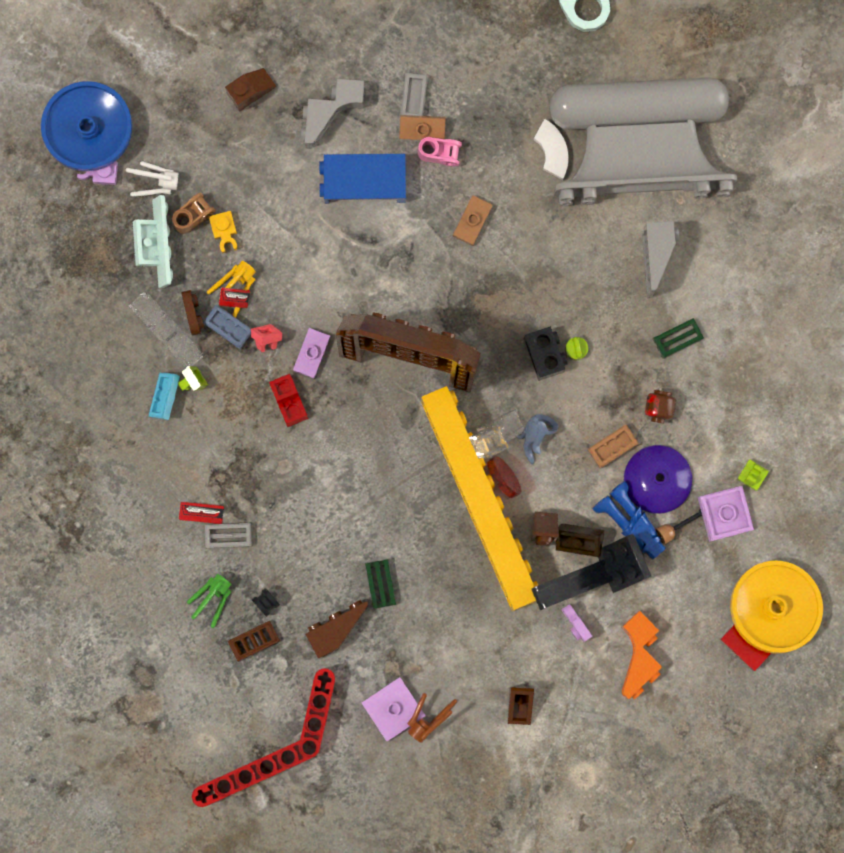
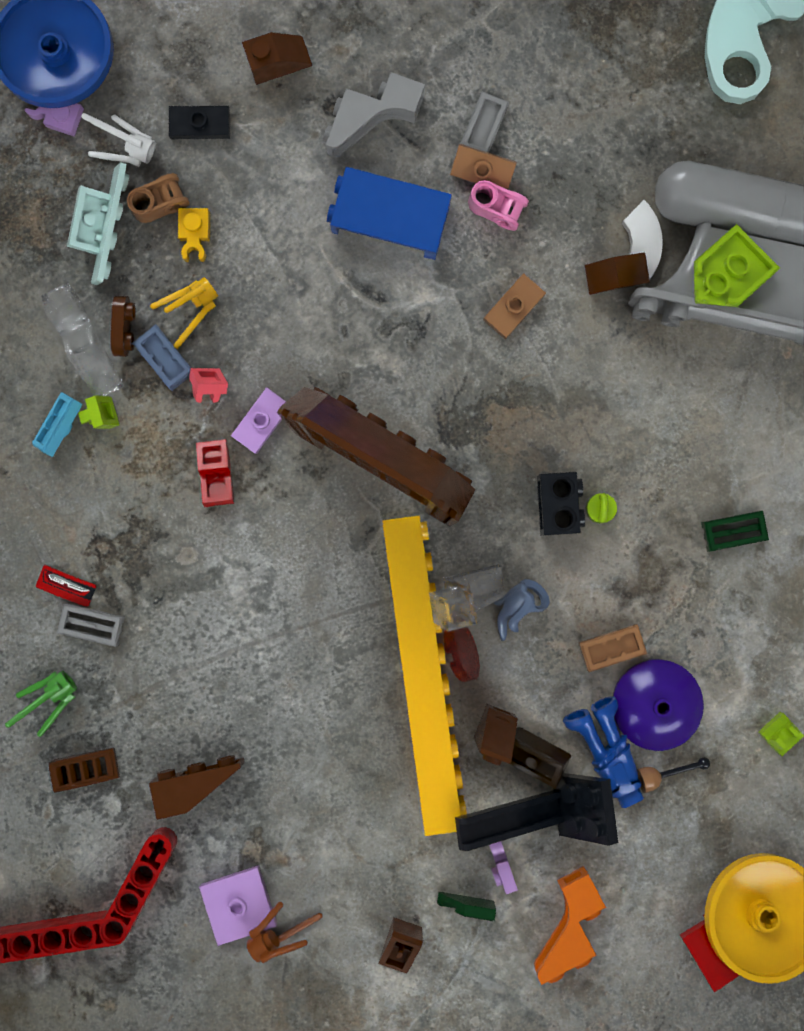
camera: 20 degrees right, 5 degrees up
(206, 150) = (199, 122): none -> black plate
(234, 297) = (179, 322): red sticker -> none
(265, 602) = (112, 725): black wheel -> none
(377, 564) = (264, 767): dark green tile -> none
(540, 177) = (617, 273): none -> reddish brown slope
(559, 661) = (468, 906): none -> dark green tile
(617, 154) = (731, 270): none -> lime tile
(658, 245) = (744, 409): light grey slope -> none
(660, 406) = (688, 613): reddish brown head -> none
(725, 513) = (733, 775): lavender plate -> none

